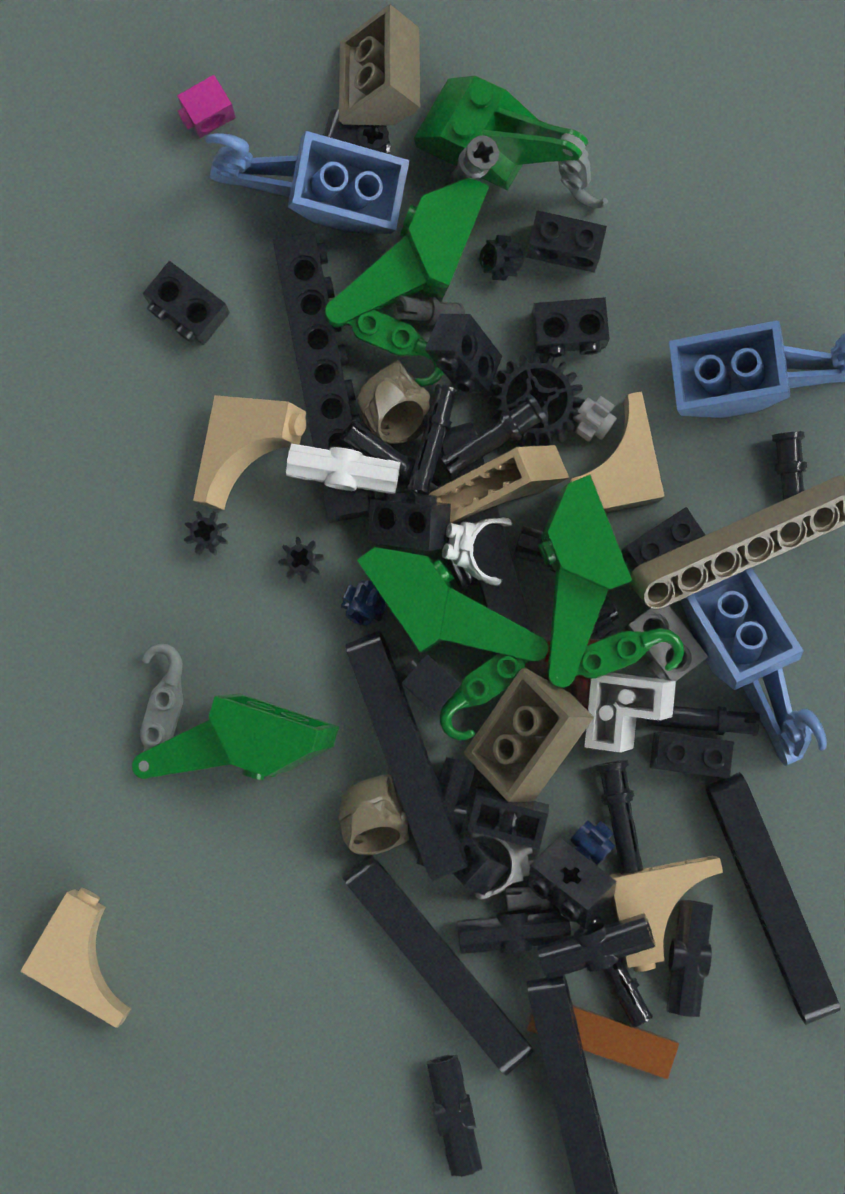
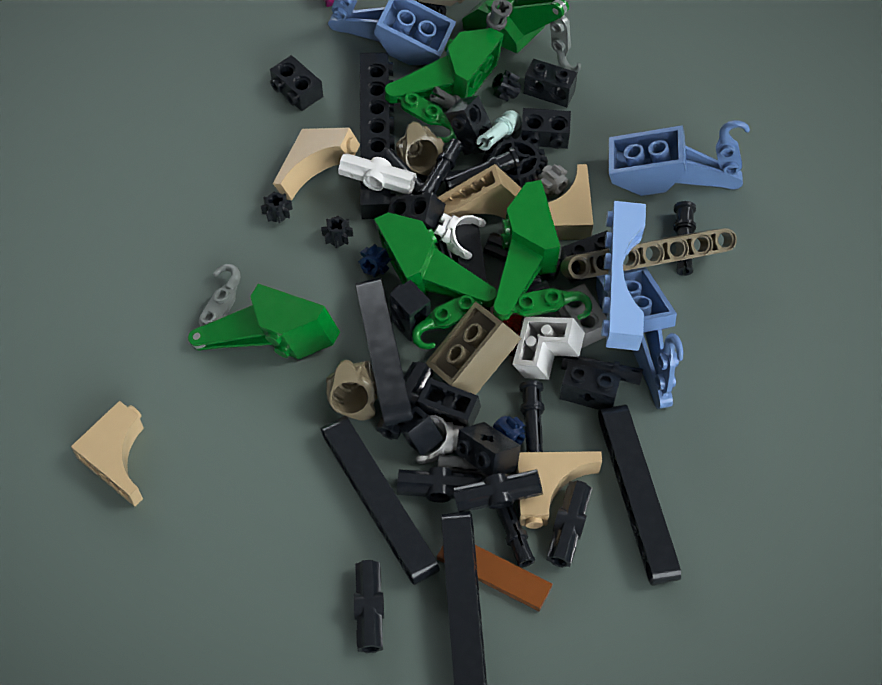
camera: 10 degrees right, 25 degrees down
(509, 342) = (502, 128): none -> light aqua pin
(736, 690) = (624, 317): none -> light blue arch

